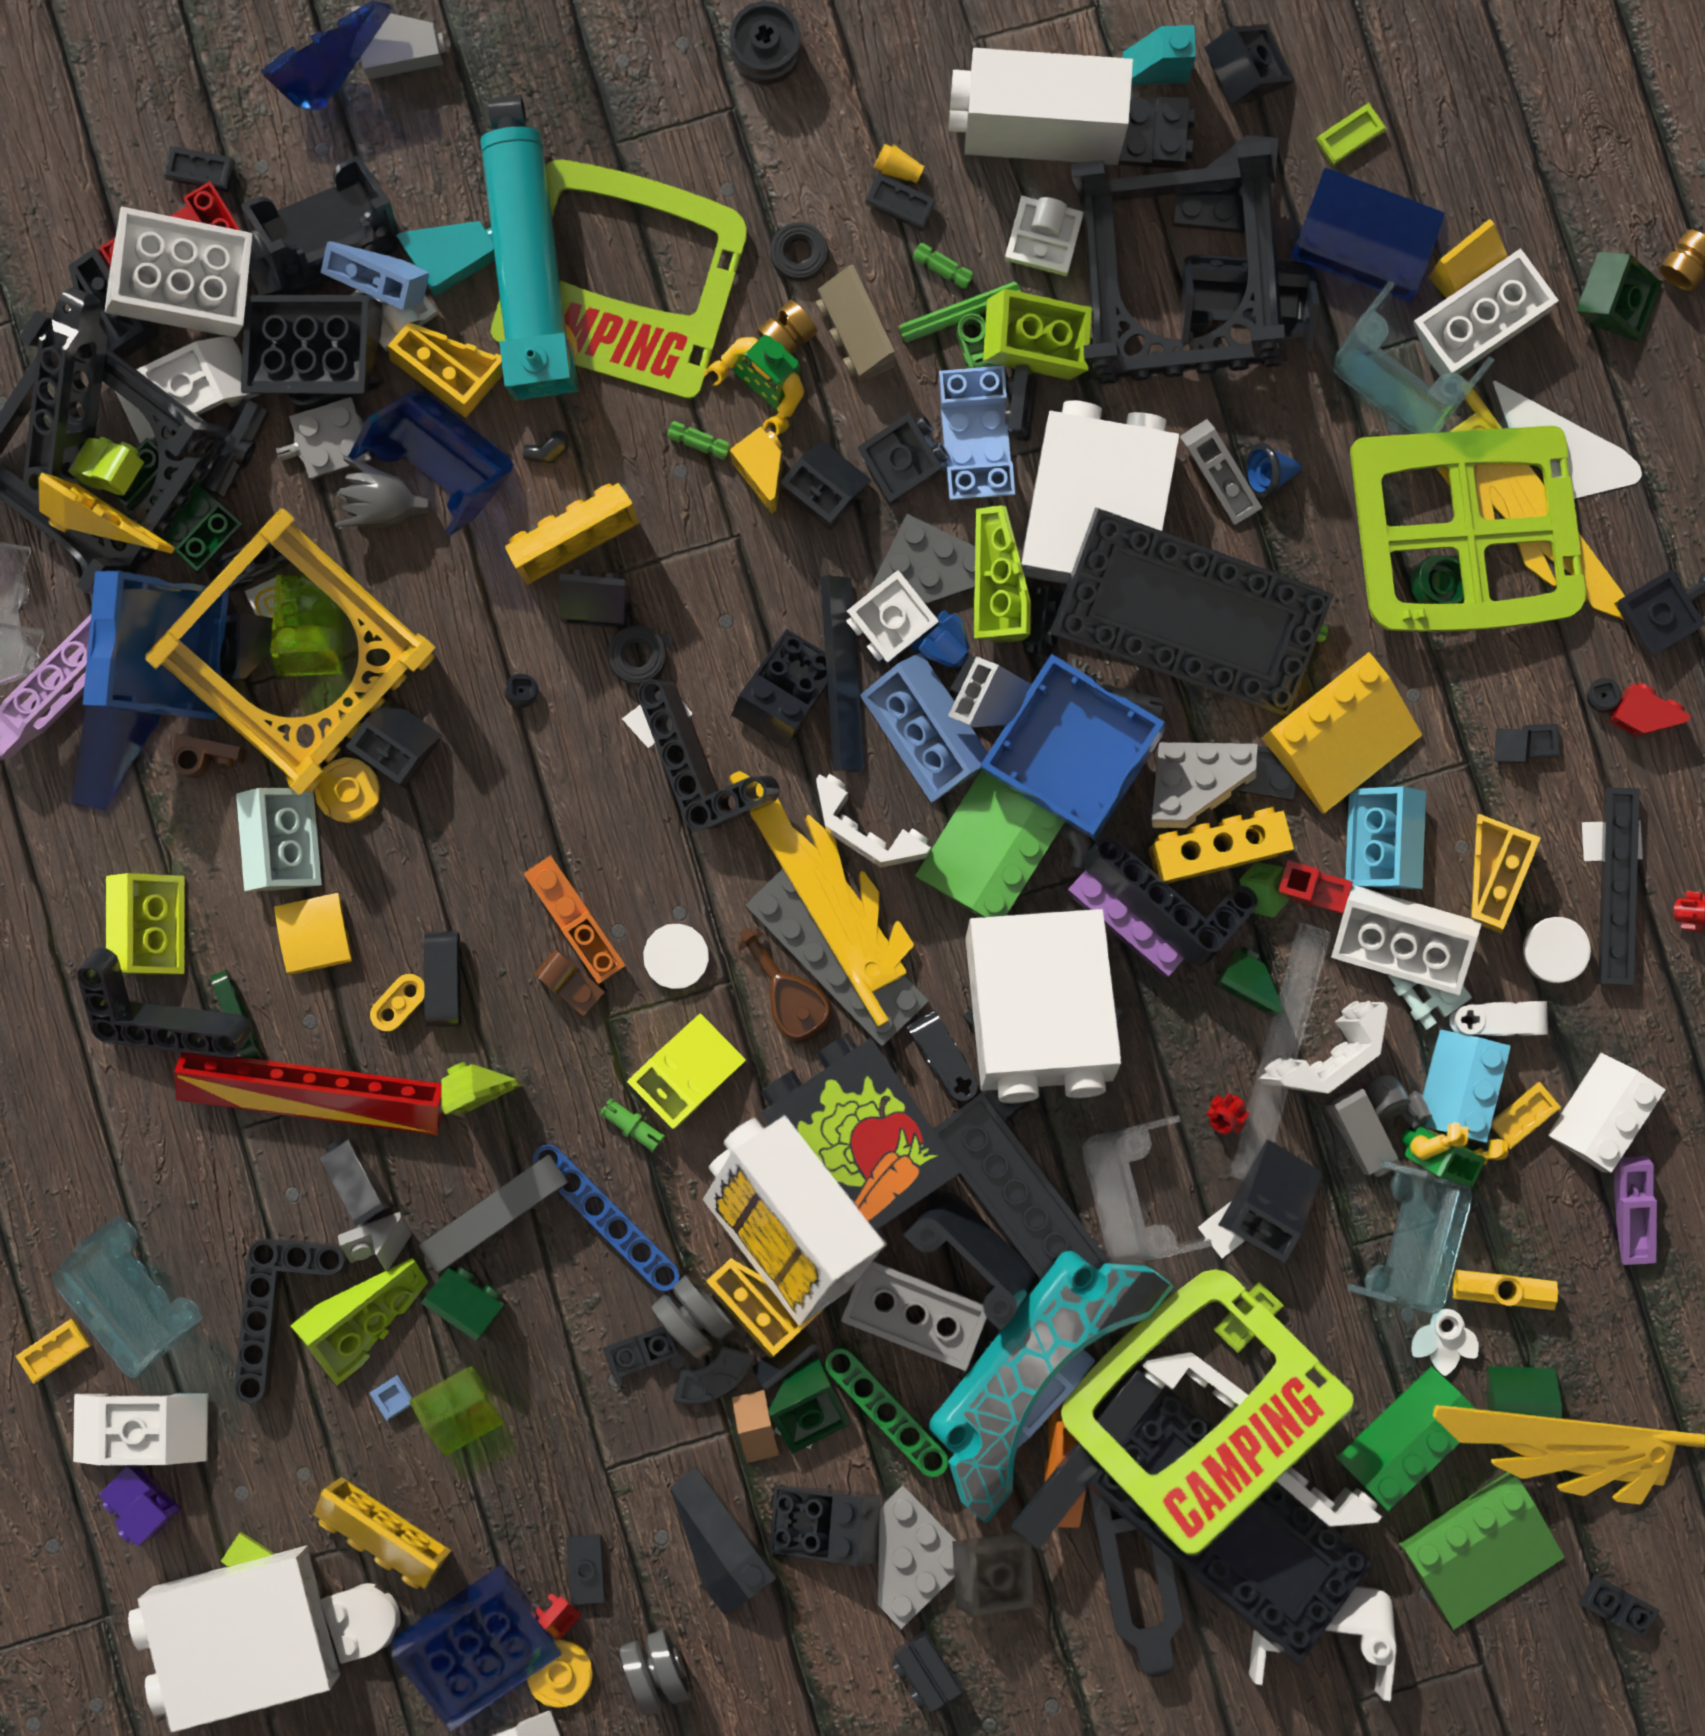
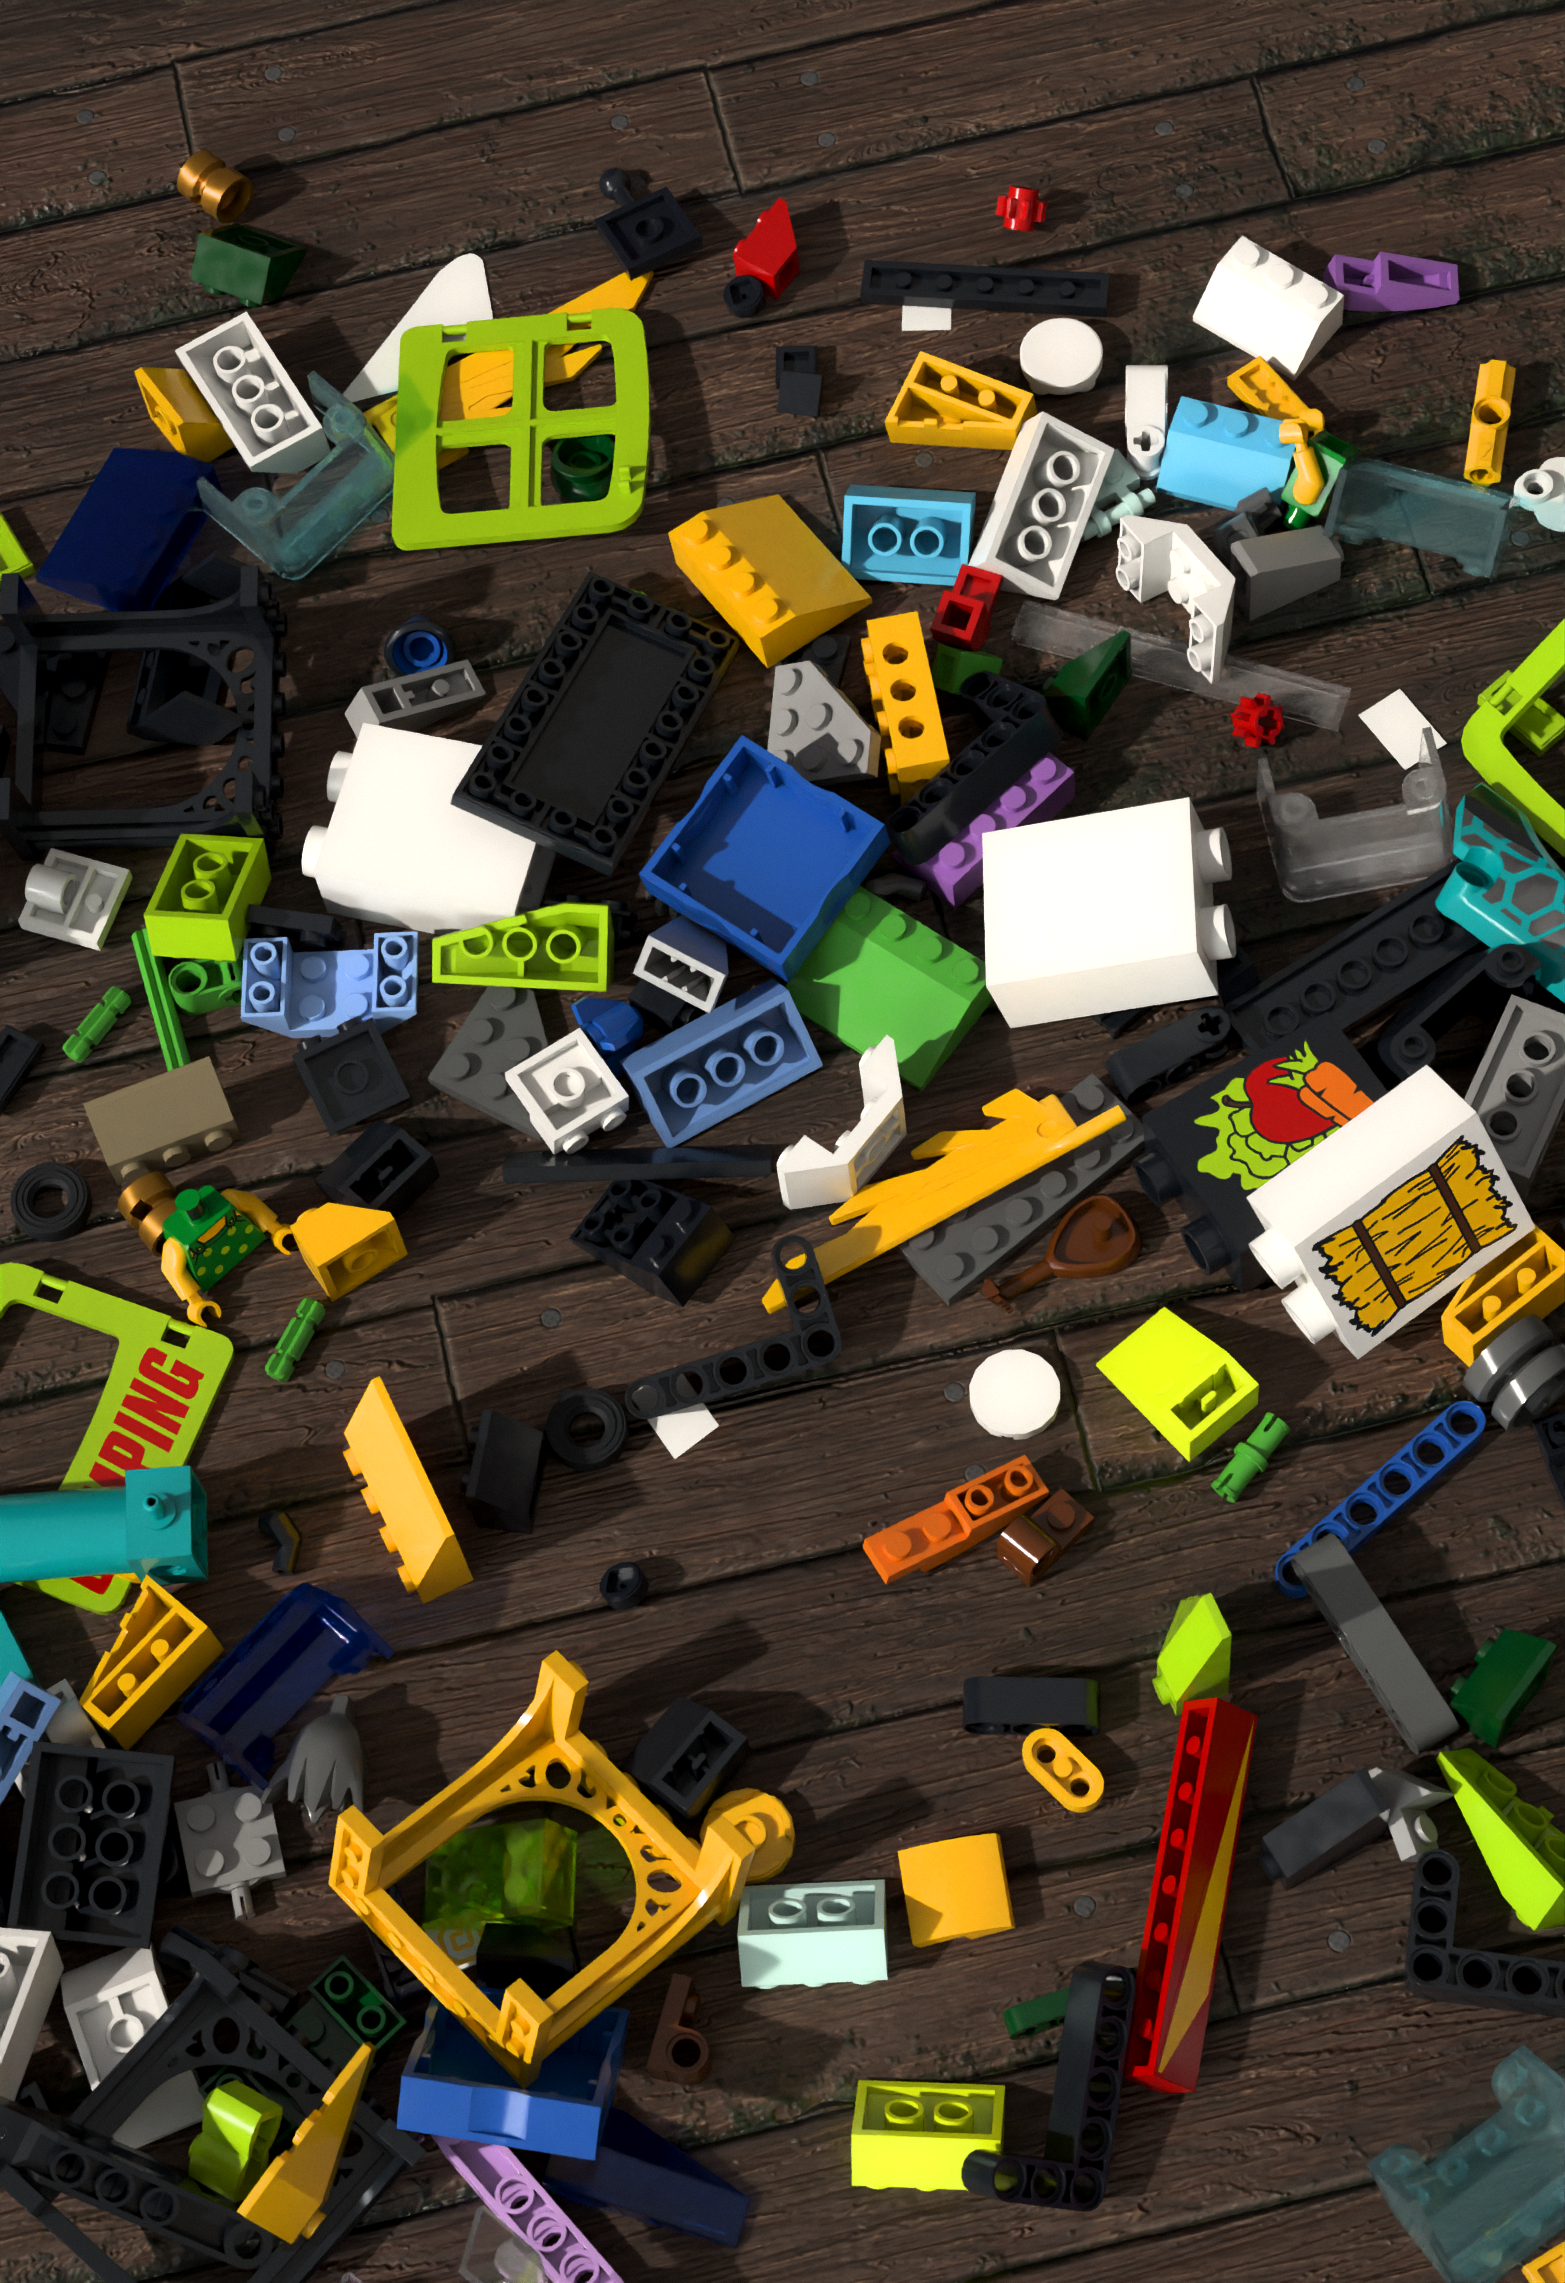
camera: 80 degrees left, 20 degrees down
(1273, 1202) = (1378, 671): black slope -> none

